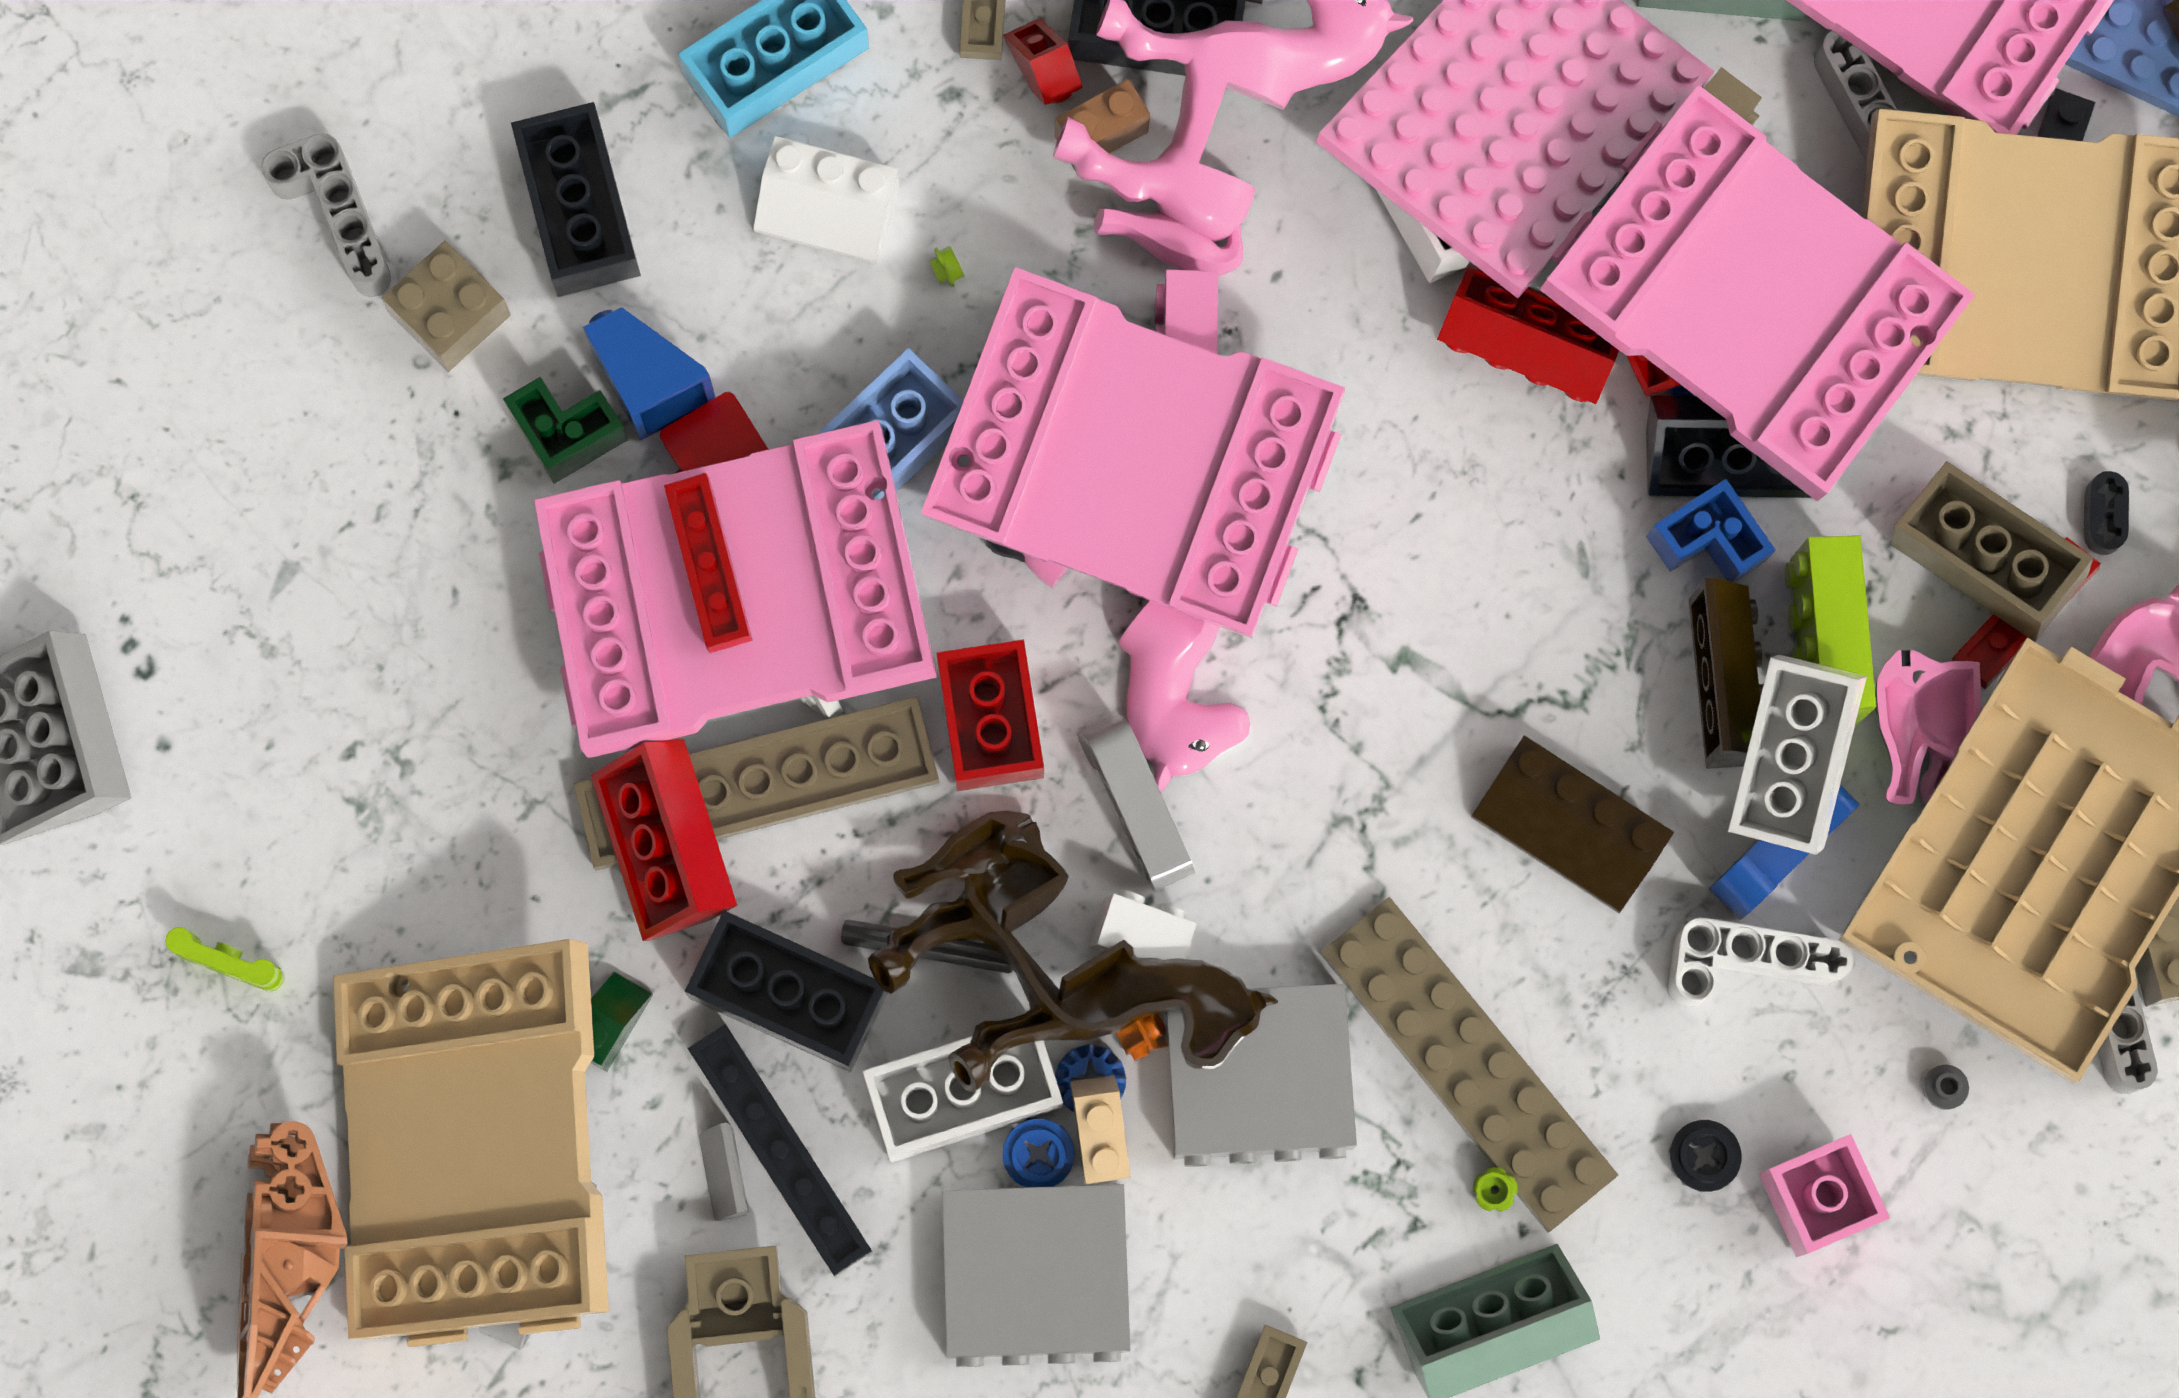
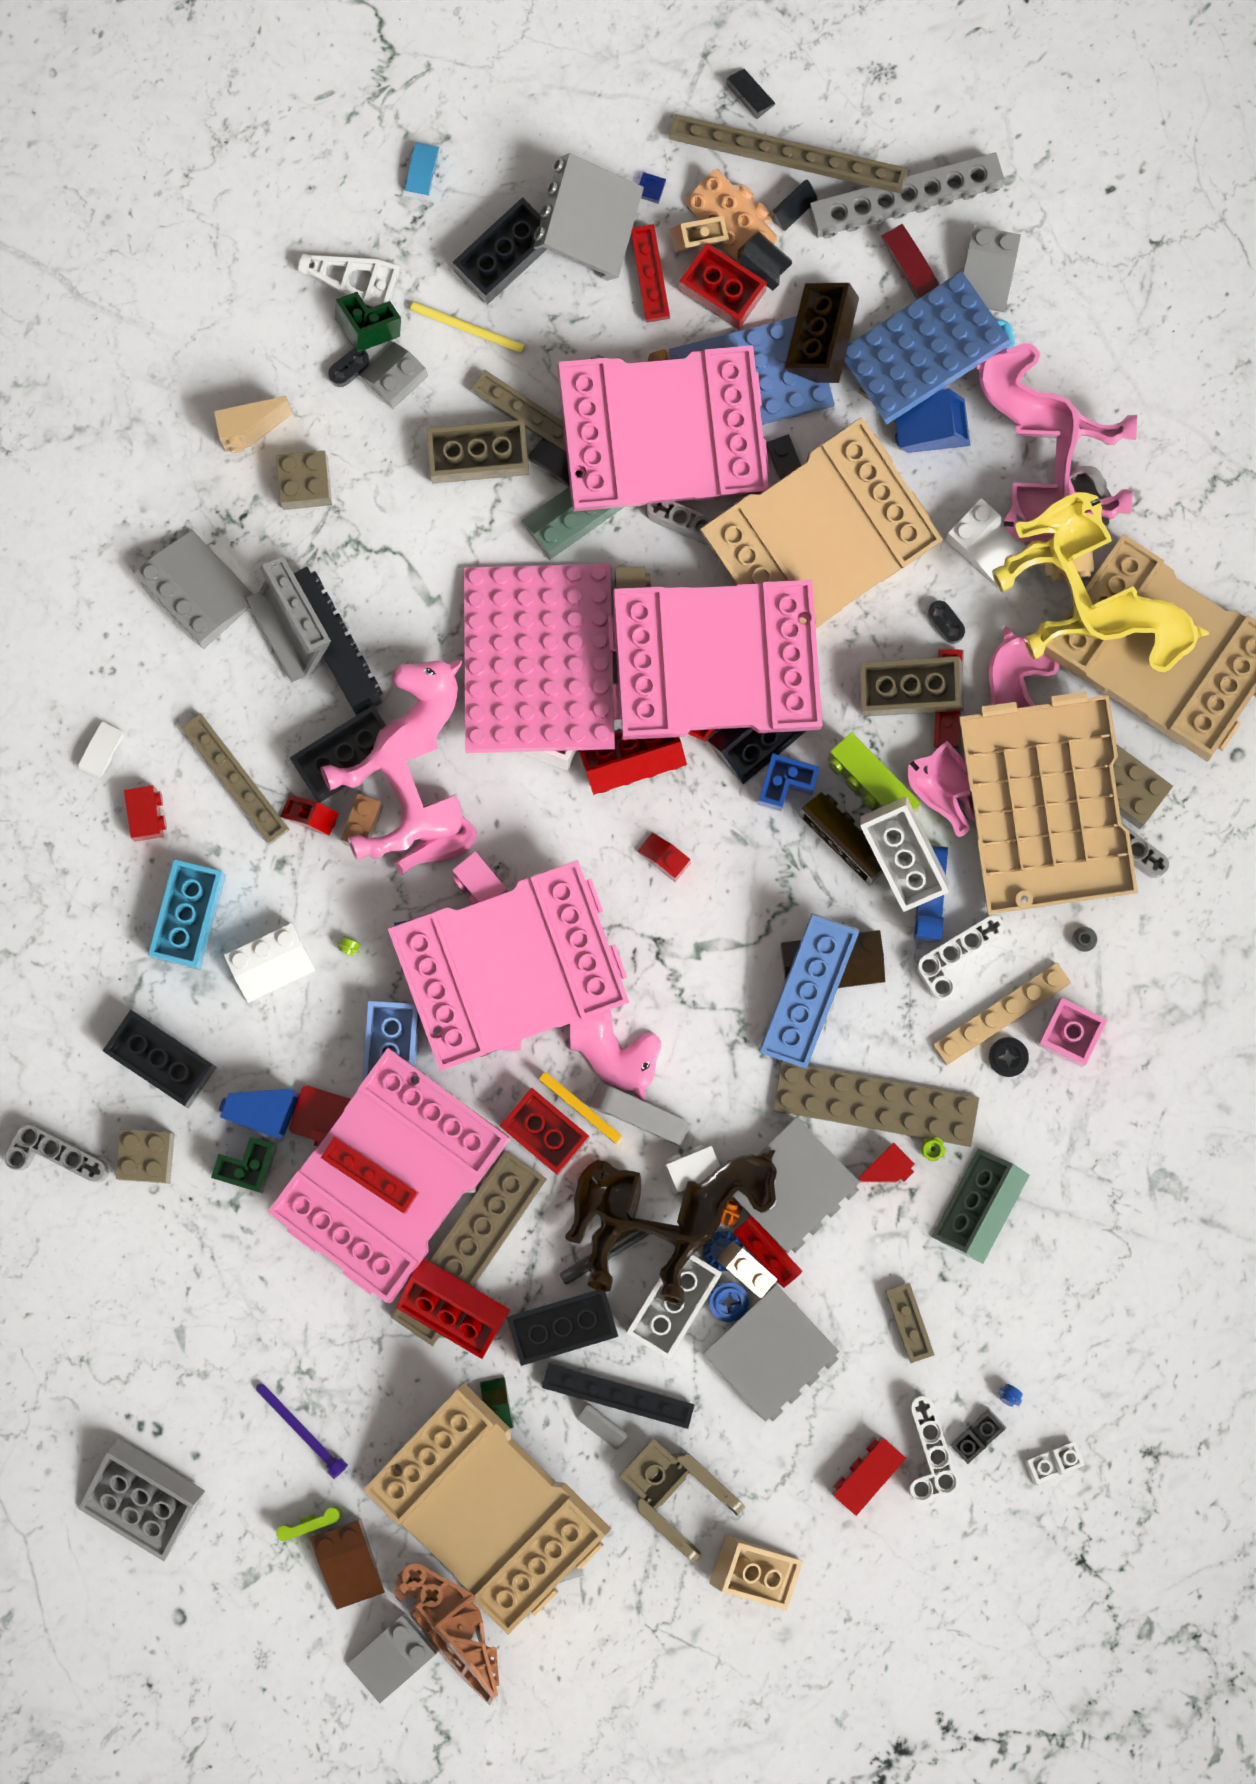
camera: 30 degrees left, 5 degrees up
(172, 1234) = (392, 1658): none -> light grey slope
(226, 1057) = (347, 1564): none -> reddish brown slope
(327, 912) = (334, 1464): none -> dark purple piece
(1065, 727) = (580, 1107): none -> yellow tile
(1149, 1131) = (767, 1251): none -> red plate
(1412, 1161) = (888, 1167): none -> red slope
(1463, 500) = (664, 856): none -> red slope
(1508, 829) = (809, 990): none -> medium blue plate
(1745, 1090) = (1001, 1014): none -> tan plate

